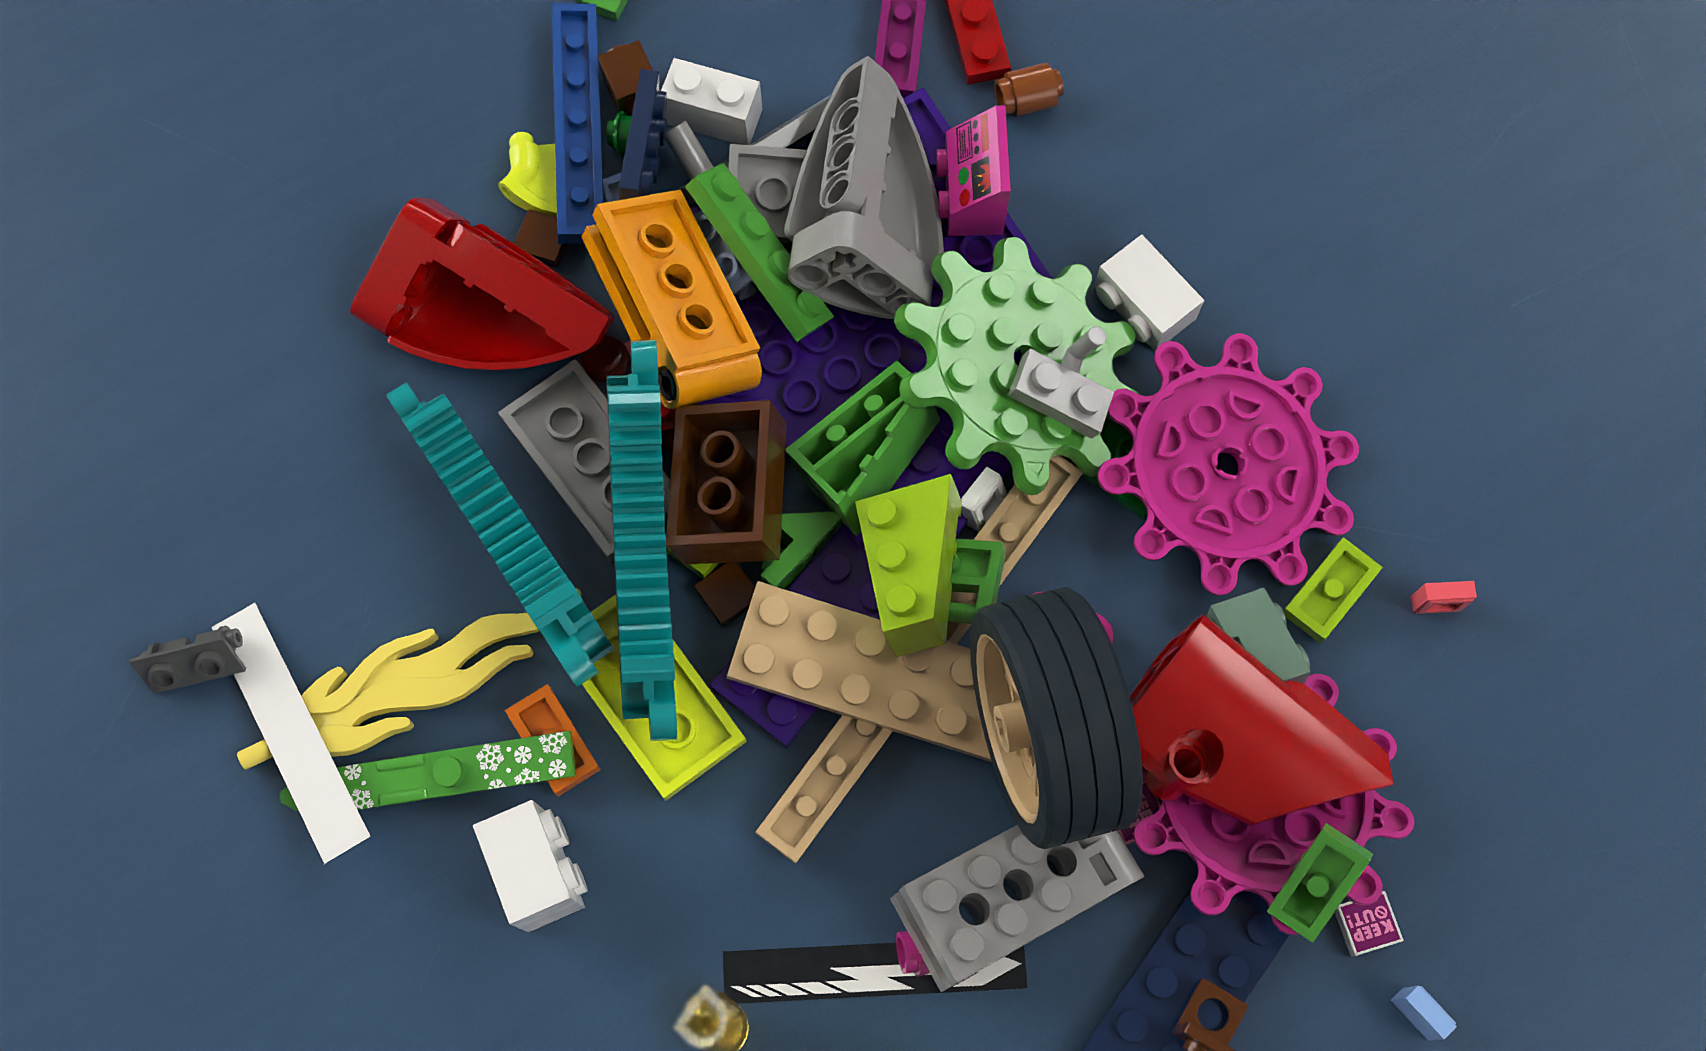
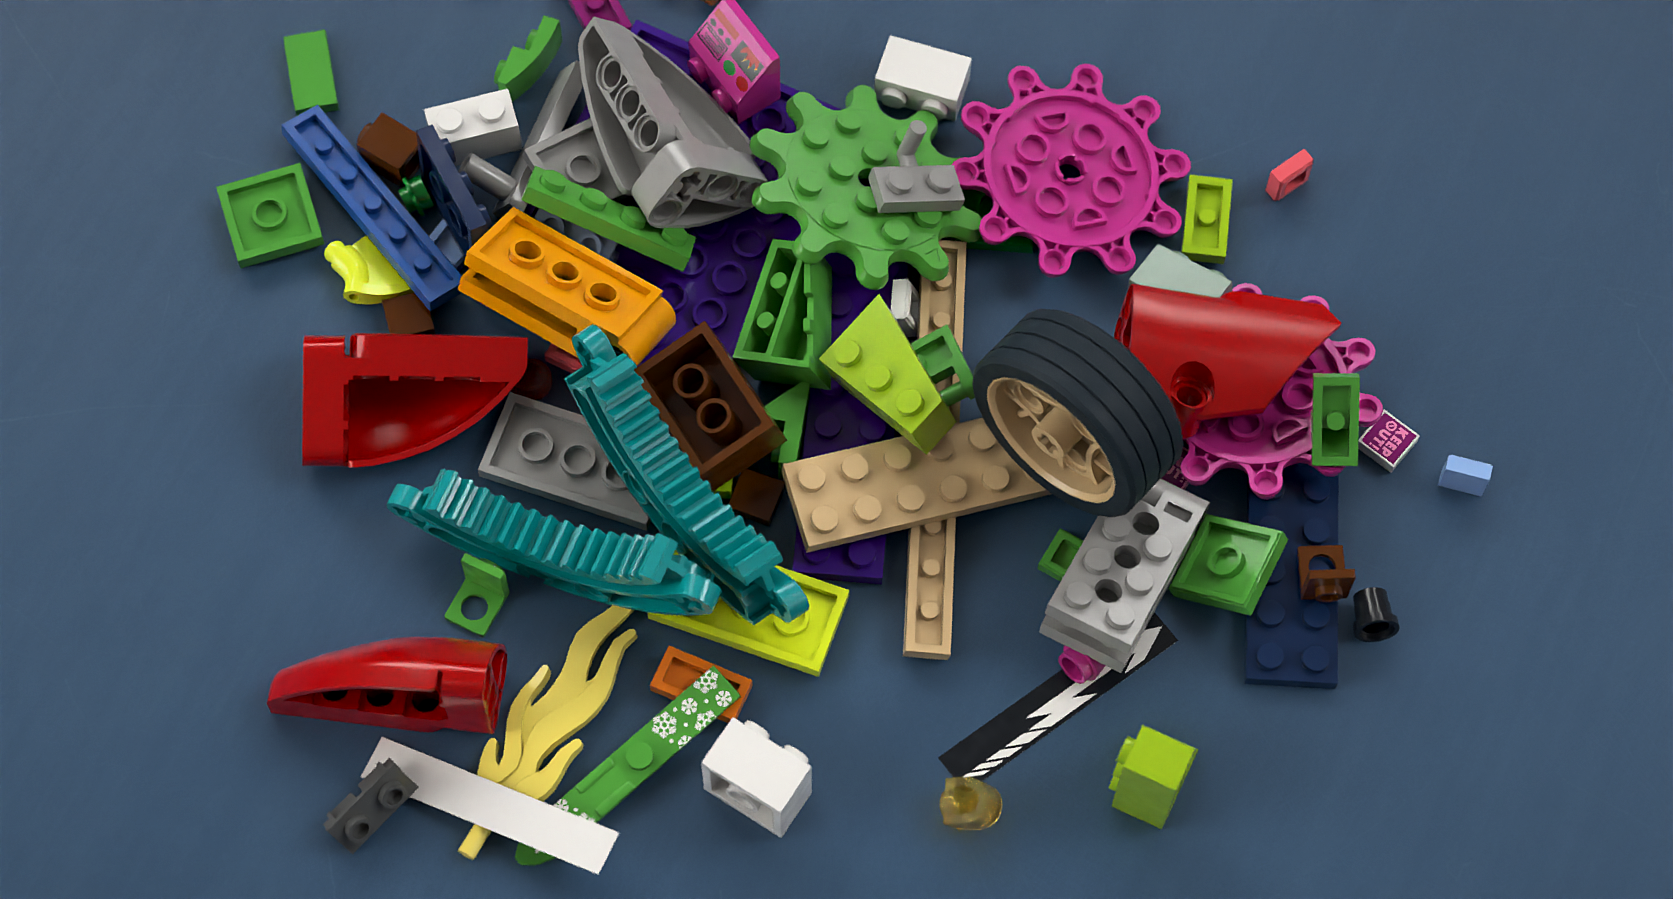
camera: 35 degrees left, 5 degrees down
(297, 569) = (456, 672): none -> red panel
(433, 516) = (481, 580): none -> bright green bracket
(489, 78) = (270, 215): none -> bright green plate
(793, 75) = (528, 64): none -> bright green slope
(970, 830) = (1059, 554): none -> bright green tile
(1122, 950) = (1228, 564): none -> bright green plate

